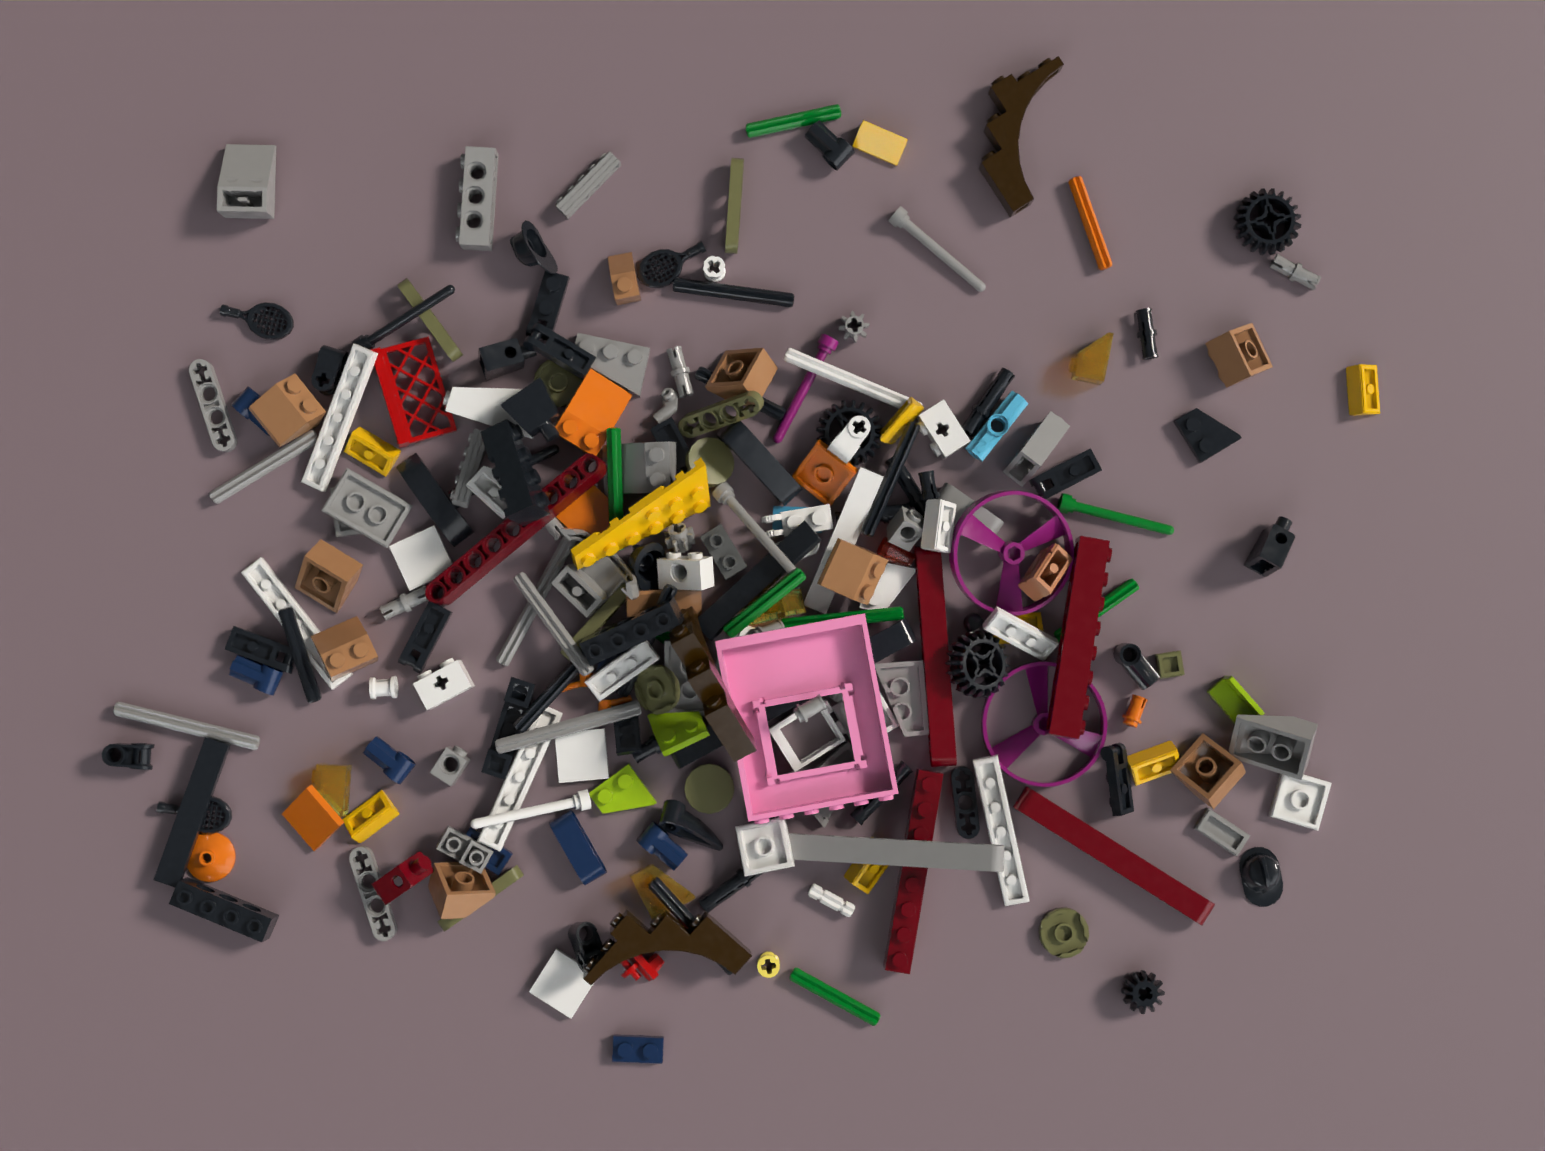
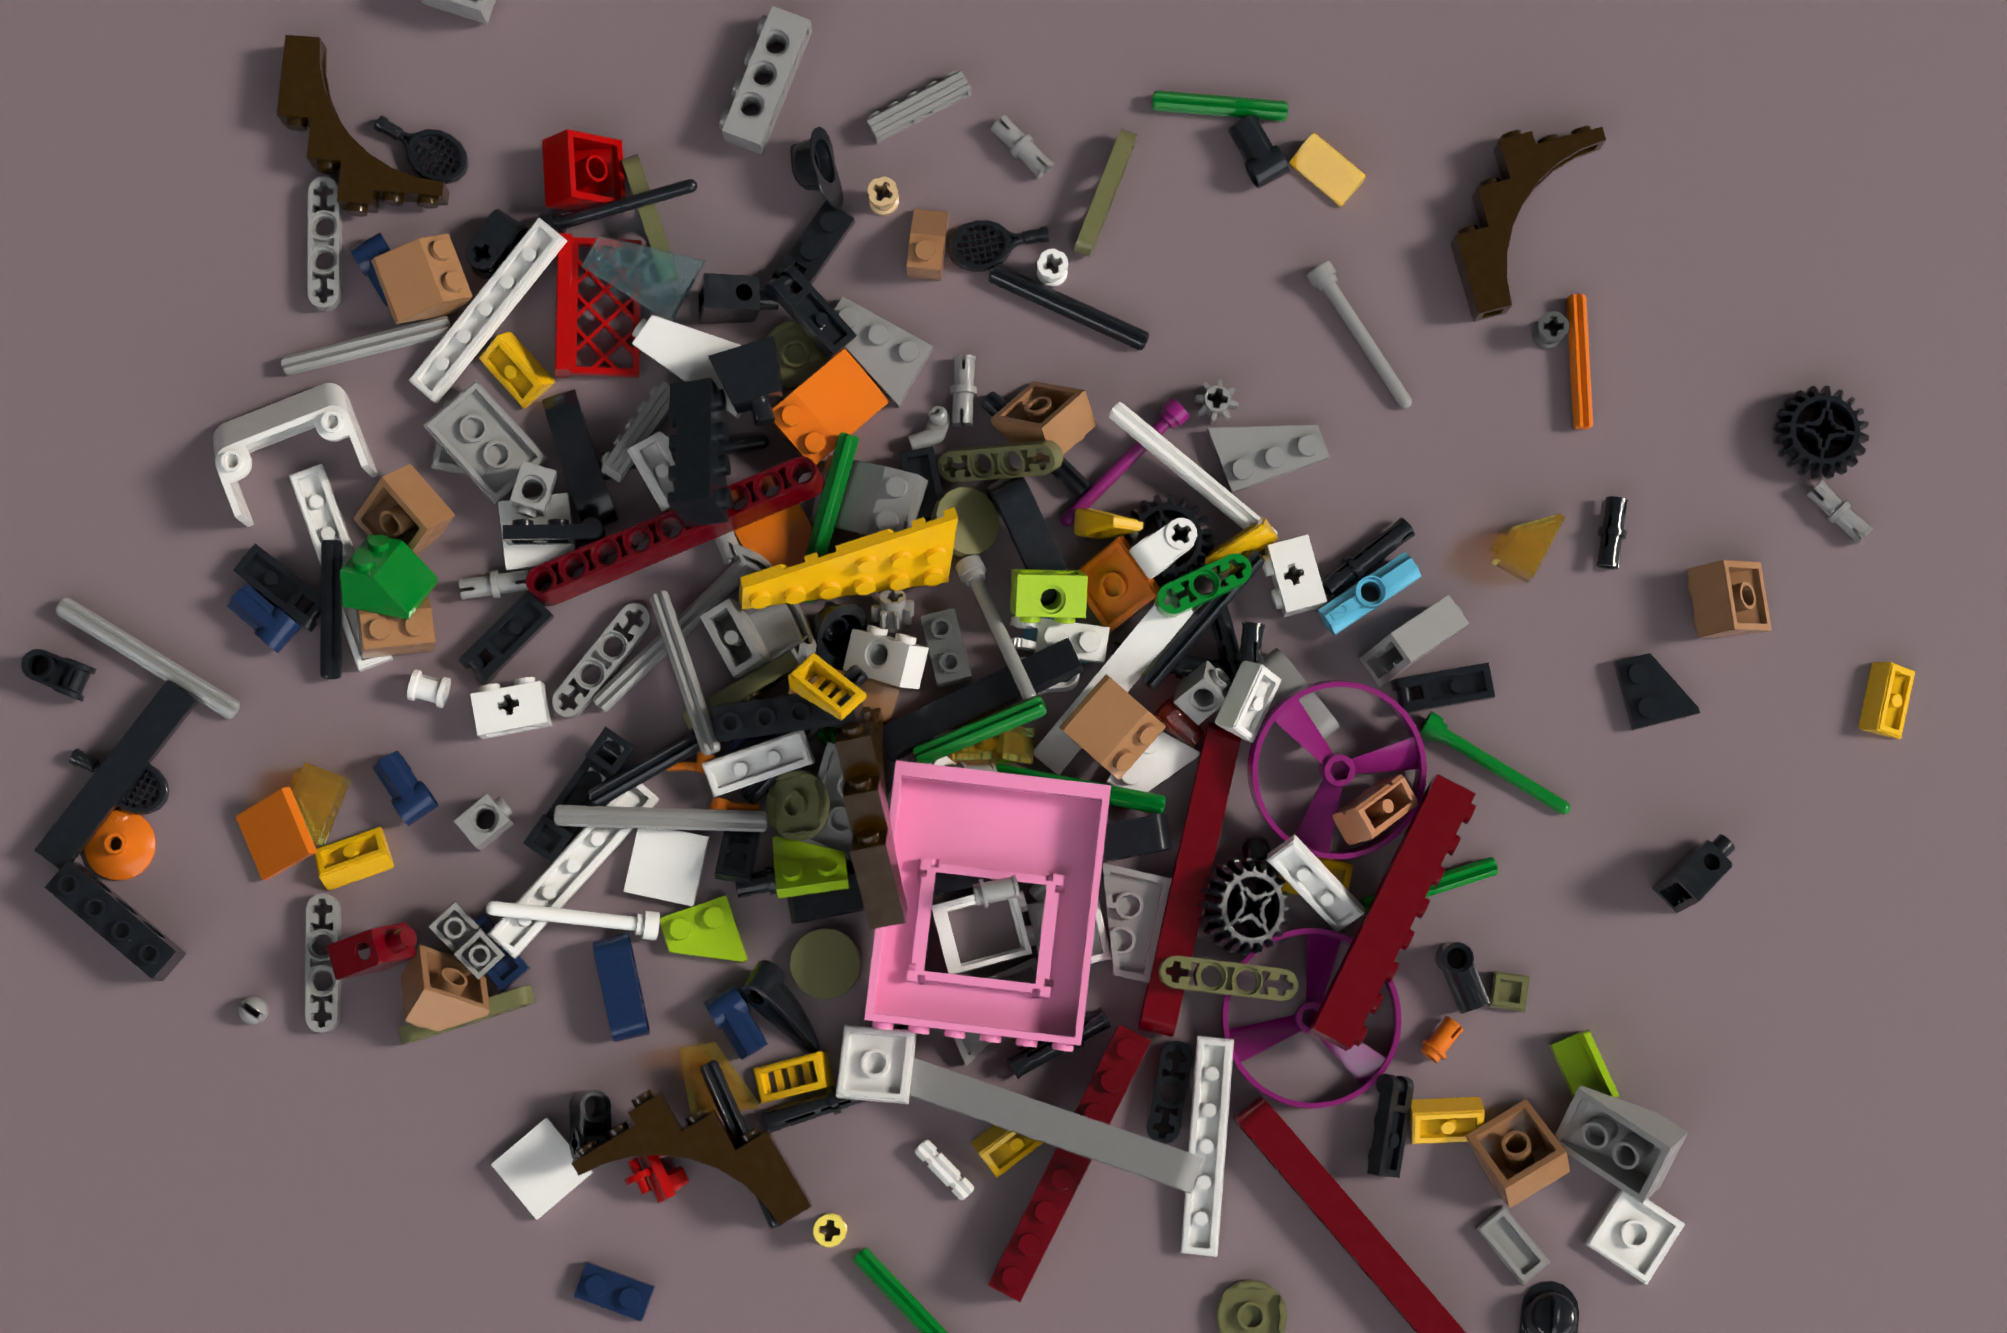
camera: 20 degrees right, 5 degrees down
(168, 311) = (363, 178): none -> dark brown arch
(248, 519) = (320, 407): none -> white windscreen
(330, 623) = (385, 578): none -> green slope
(337, 934) = (256, 1003): none -> light grey hinge
(372, 300) = (582, 170): none -> red slope
(405, 521) = (533, 474): none -> light grey brick
(435, 555) = (554, 533): none -> black plate
(438, 359) = (645, 273): none -> clear light blue wing
(497, 633) = (597, 657): none -> light grey beam
(579, 248) = (886, 205): none -> tan bush
(640, 595) = (815, 666): none -> yellow slope
(667, 191) = (1021, 146): none -> light grey pin
(730, 860) = (822, 1068): none -> yellow slope
(767, 495) = (1029, 585): none -> lime brick
(803, 434) = (1102, 524): none -> yellow slope
(897, 351) = (1265, 452): none -> light grey wing
(902, 449) = (1229, 582): none -> green beam
(981, 716) = (1228, 975): none -> olive beam
(1066, 200) = (1543, 337): none -> dark grey bush

